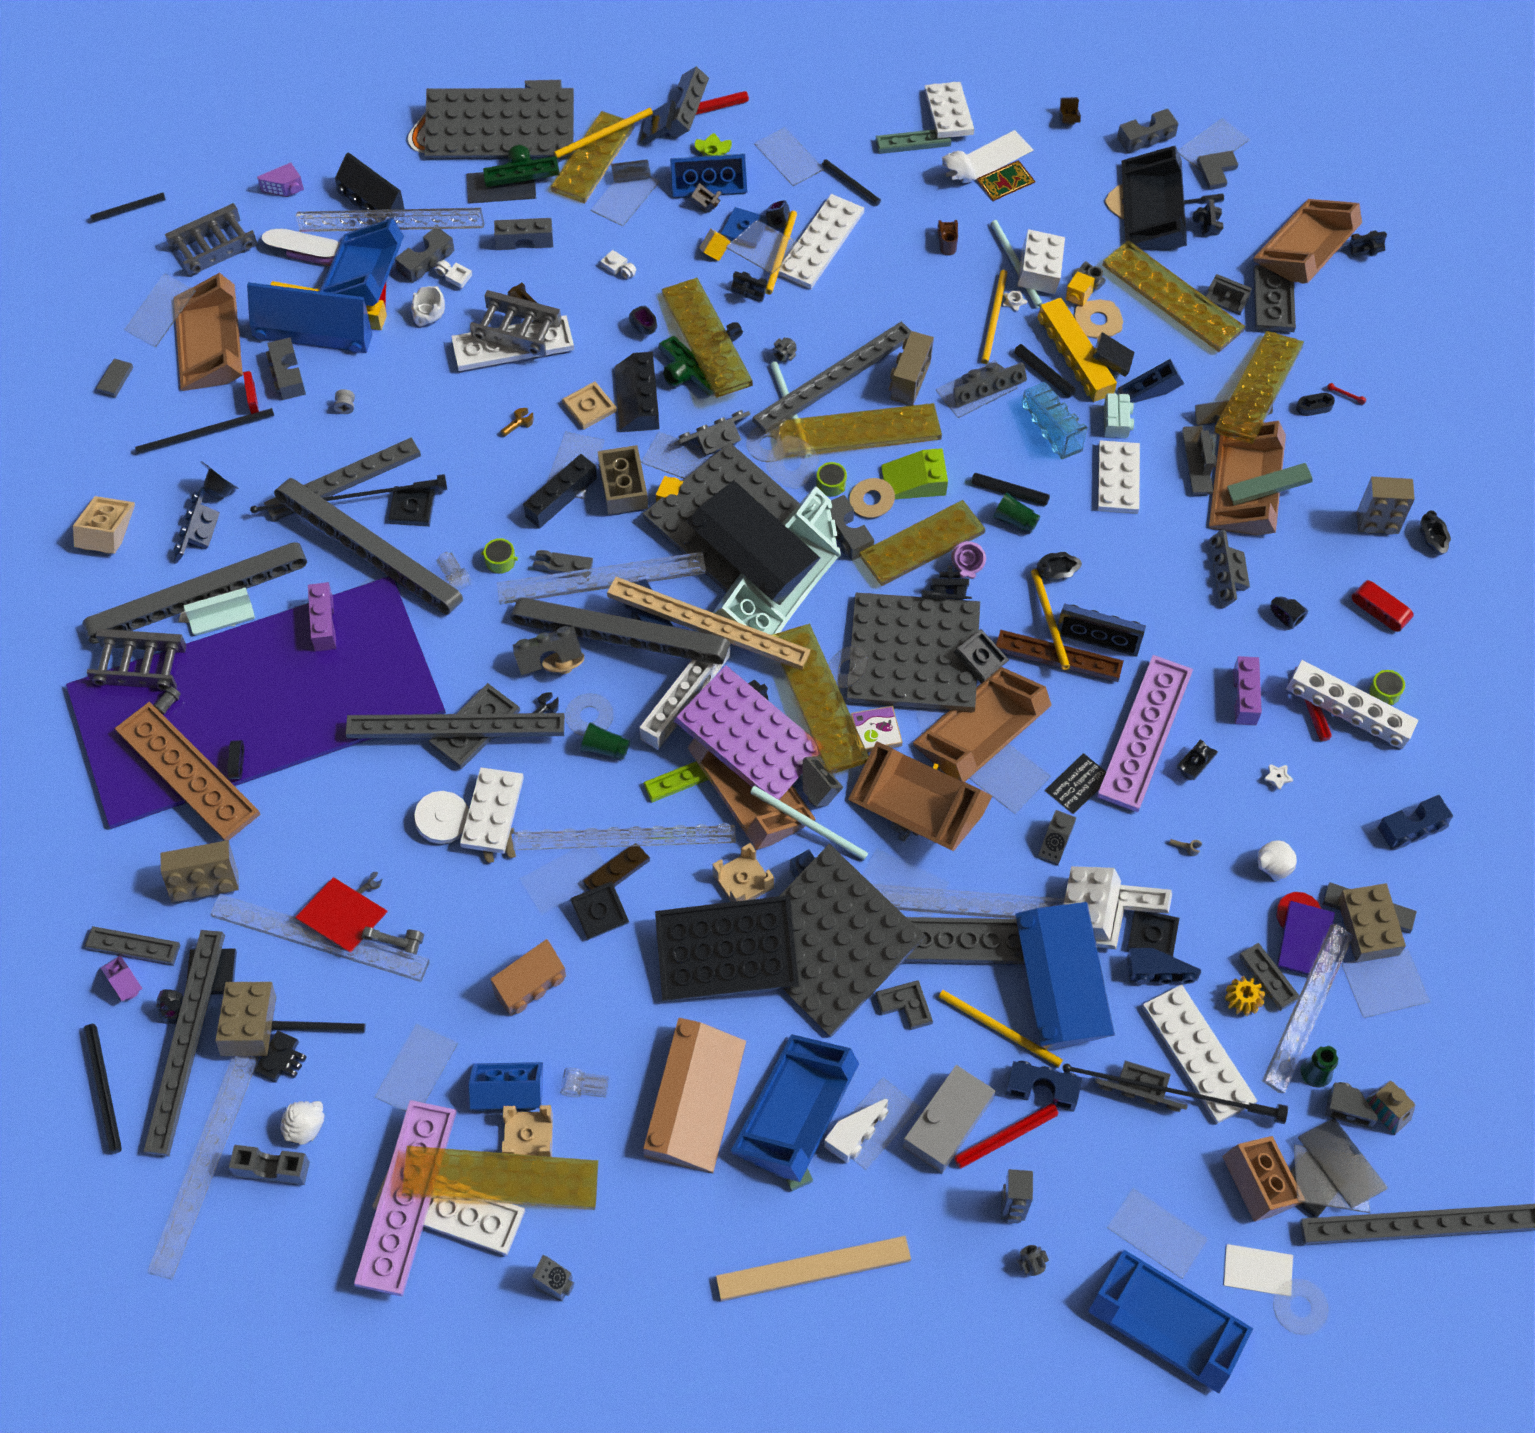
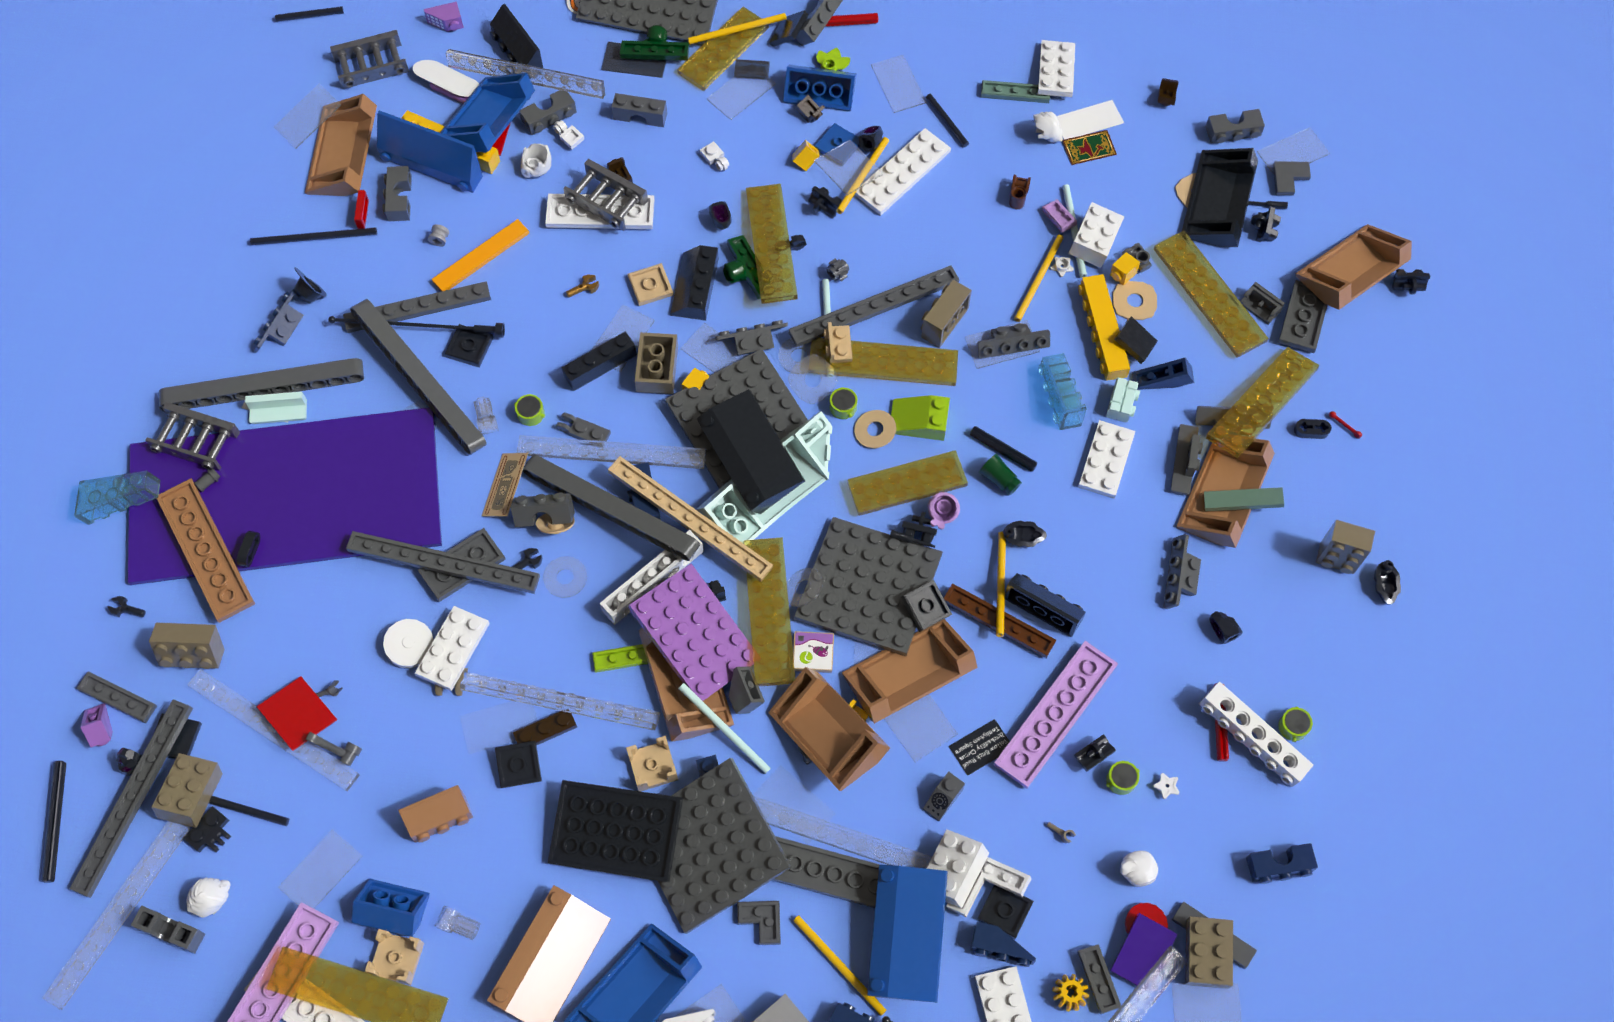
camera: 15 degrees right, 5 degrees up
(67, 735) = (110, 494): none -> clear light blue wedge
(102, 525) = (202, 304): tan slope -> none
(112, 853) = (125, 608): none -> black bar
(114, 377) = (252, 170): dark grey tile -> none
(321, 619) = (355, 442): medium lavender arch -> none
(396, 414) = (480, 256): none -> light orange tile
(496, 635) = (505, 484): none -> sticker
(604, 742) = (568, 607): dark green plant -> none
(810, 420) = (839, 343): none -> tan bracket
(851, 539) = (845, 466): dark grey arch -> none
(997, 251) = (1059, 215): none -> lavender plate
(1044, 370) = (1069, 340): black axle -> none
(1231, 778) = (1122, 777): none -> piece
(1247, 680) = (1163, 695): medium lavender arch -> none
(1382, 606) = (1315, 642): red beam -> none

